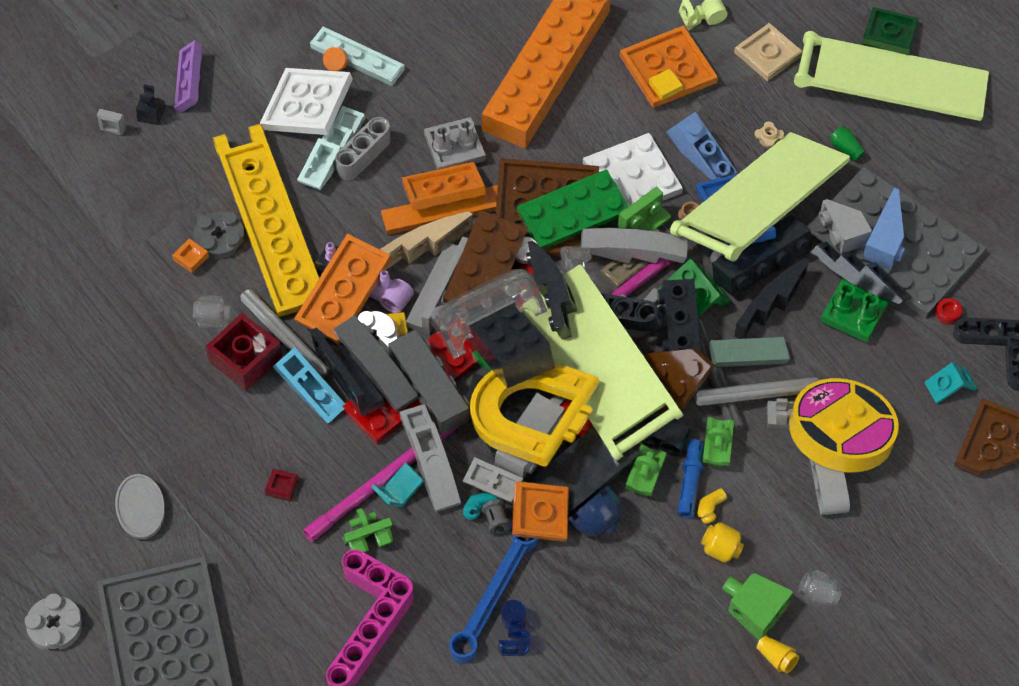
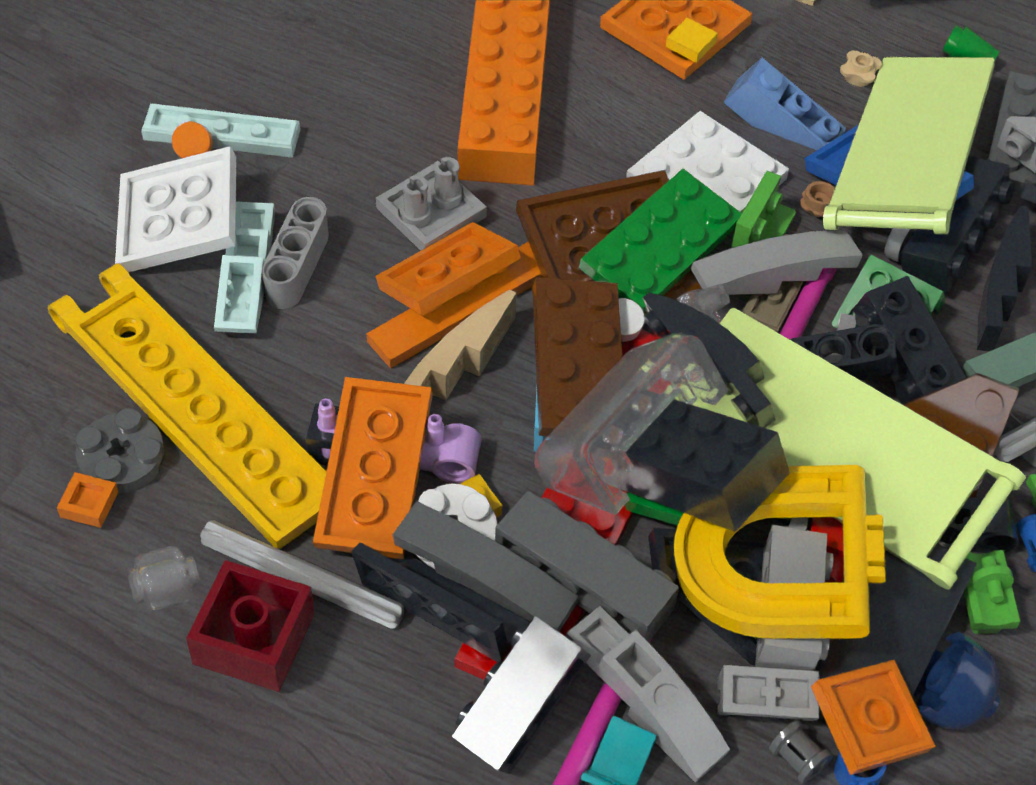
camera: 25 degrees left, 5 degrees down
(309, 385) = (384, 642): medium azure slope -> none
(362, 435) = (520, 695): none -> brick
(435, 287) = (512, 418): light grey fence -> none
(475, 503) = (753, 743): teal arm -> none

